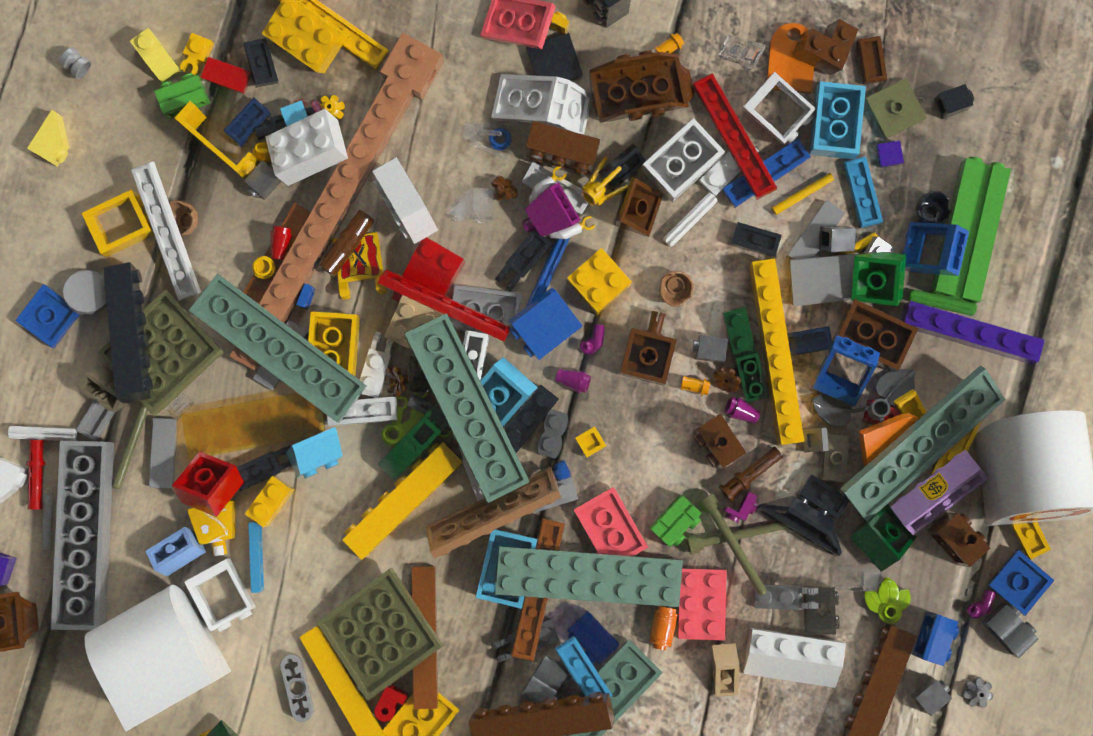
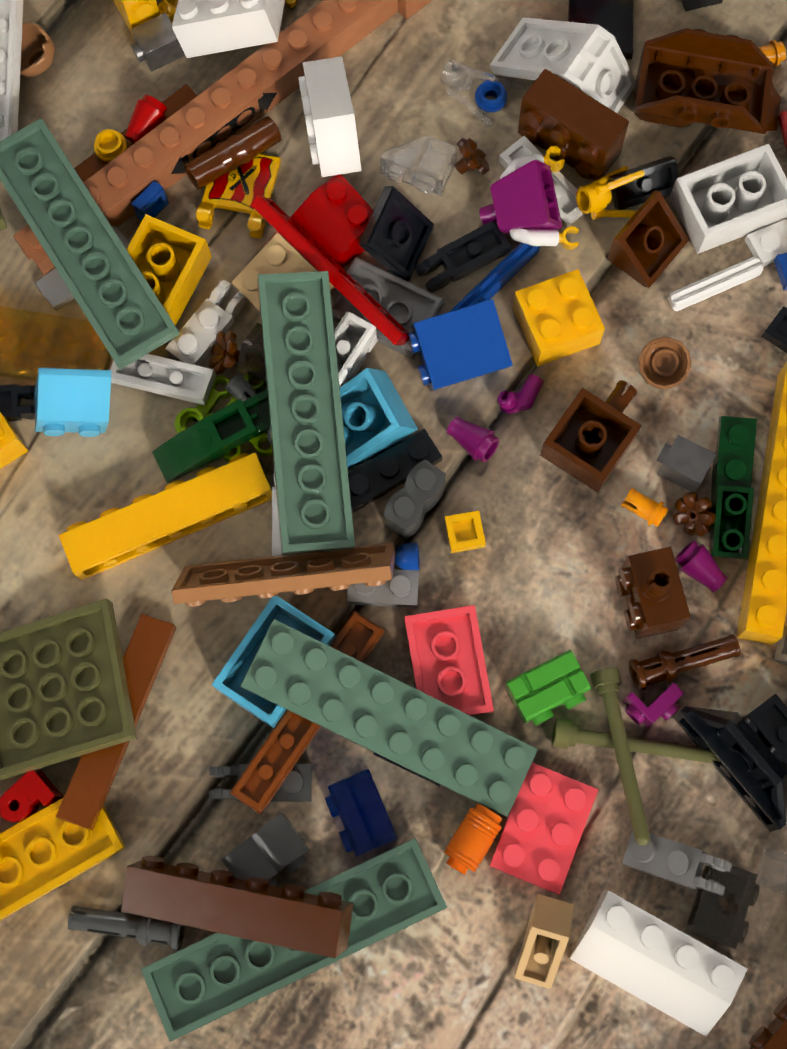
camera: 25 degrees right, 10 degrees down
(476, 263) = (396, 233): none -> black tile
(581, 667) = (326, 849): dark azure tile -> none

